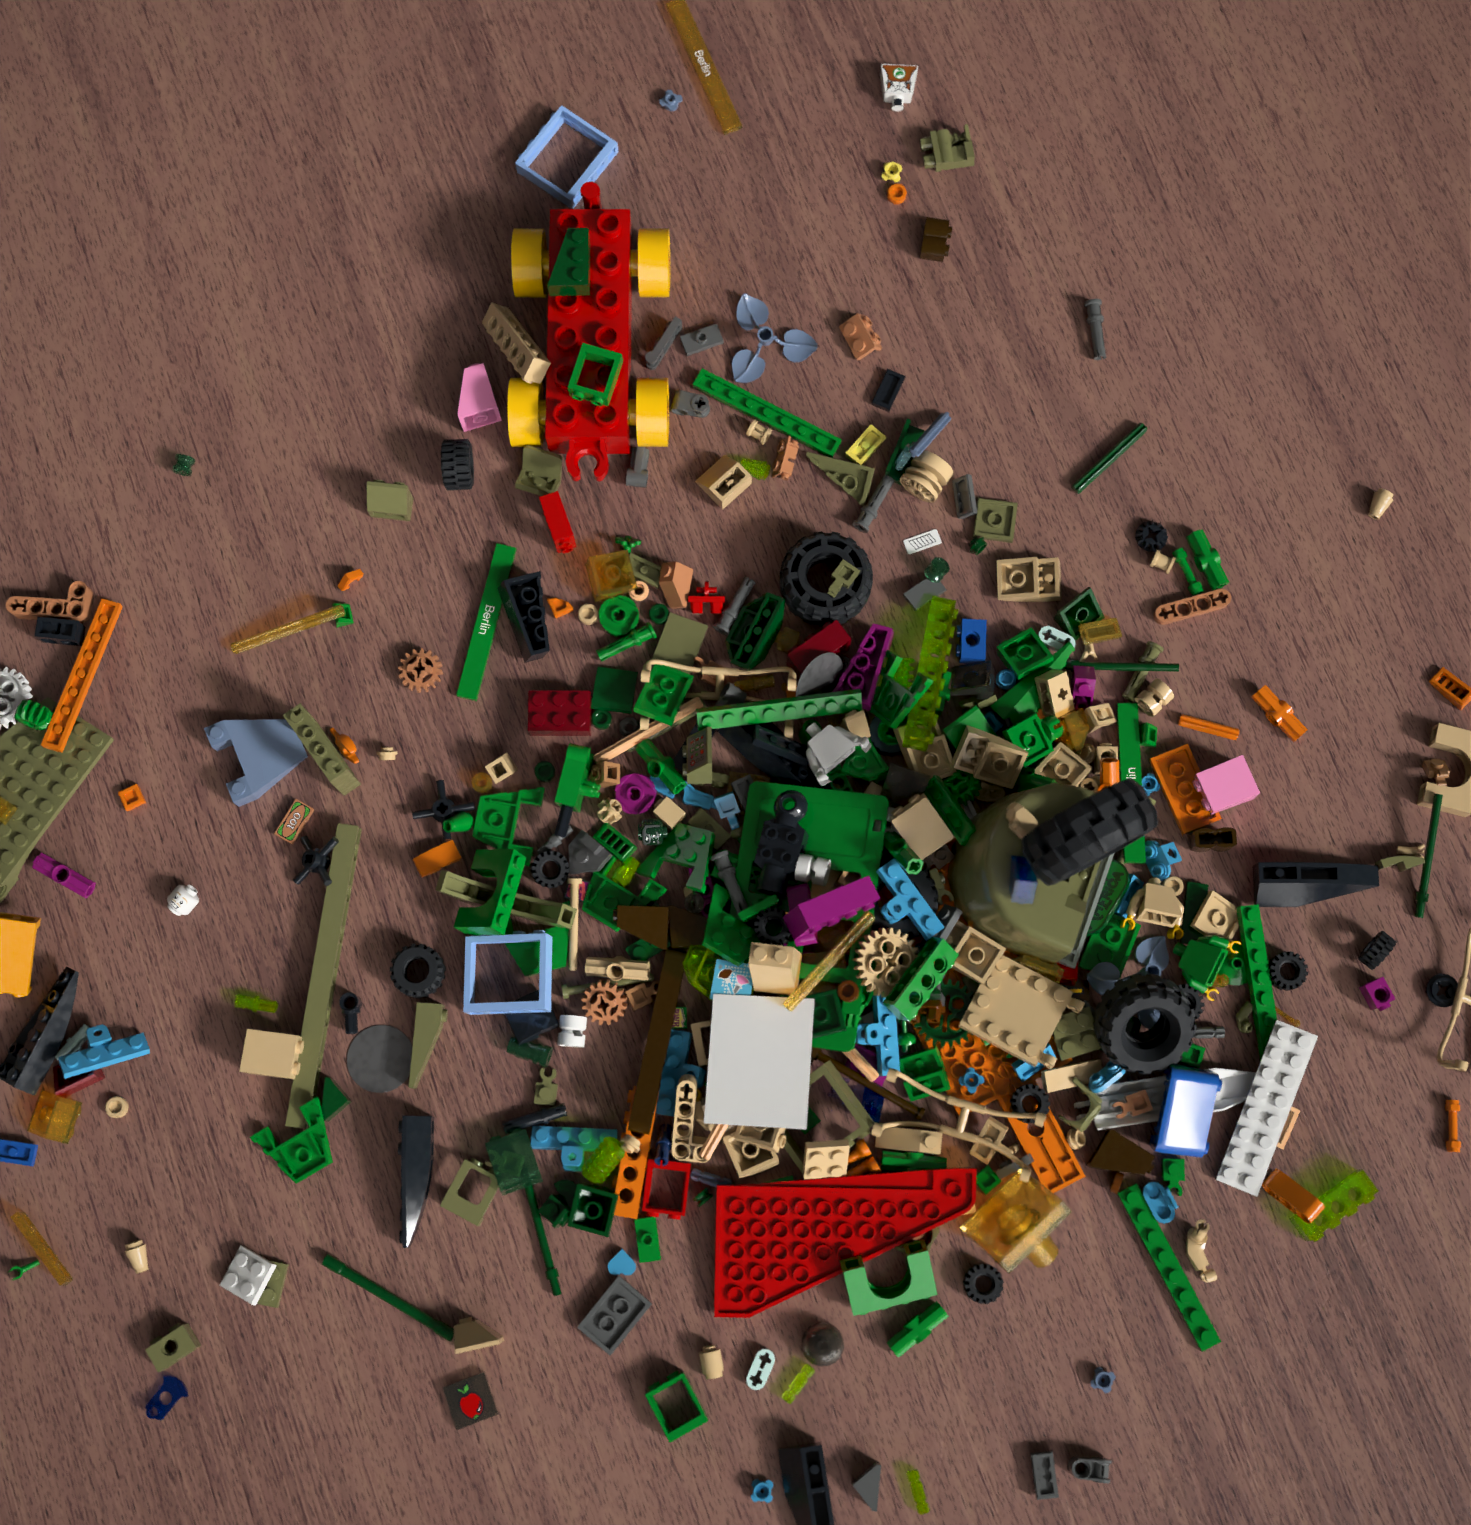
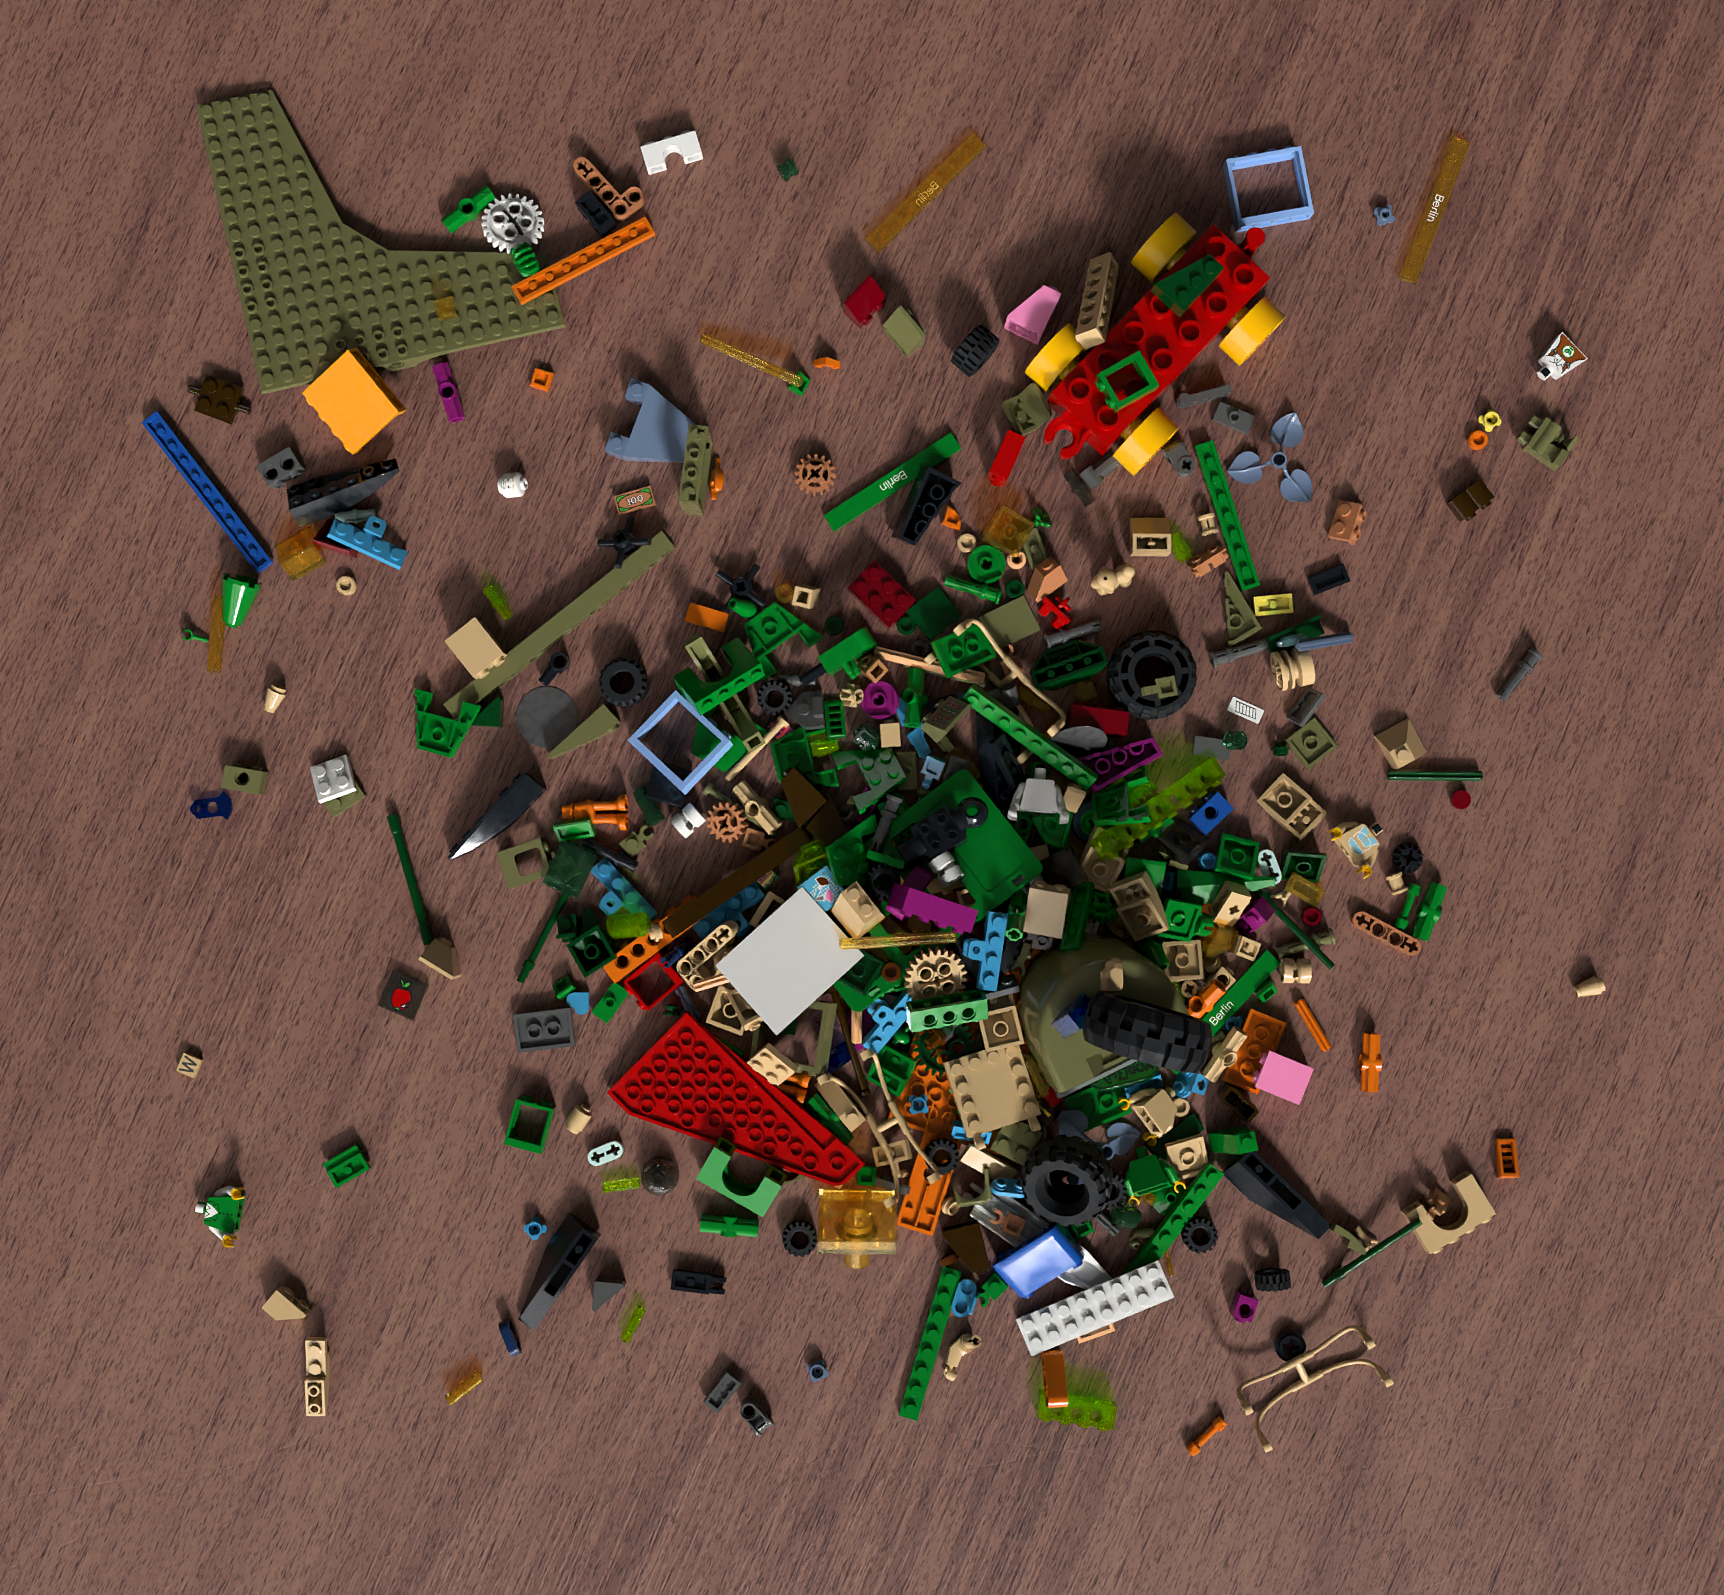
camera: 40 degrees right, 10 degrees up
(33, 1202) = (237, 598): none -> green cone
(84, 517) = (684, 144): none -> white arch
(308, 388) = (925, 193): none -> clear yellow tile
(337, 507) = (864, 302): none -> dark red slope
(387, 753) = (739, 512): tan plate -> none
(483, 1104) = (589, 809): none -> orange piece
(486, 1126) = (574, 829): none -> green tile
(598, 1264) = (564, 987): none -> green slope
(635, 494) = (1079, 488): none -> clear smoke pin
(724, 537) = (1108, 579): none -> tan animal
(935, 1404) = (696, 1282): none -> black hinge
(1061, 459) = (1400, 744): none -> tan slope
(1105, 559) = (1358, 844): none -> tan torso
(1124, 647) = (1311, 916): none -> dark red tile
(1146, 457) = (1460, 799): none -> dark red tile
(1167, 811) = (1224, 1054): none -> tan piece
(1217, 1011) = (1126, 1215): none -> clear green head
(1239, 870) = (1233, 1140): none -> green slope

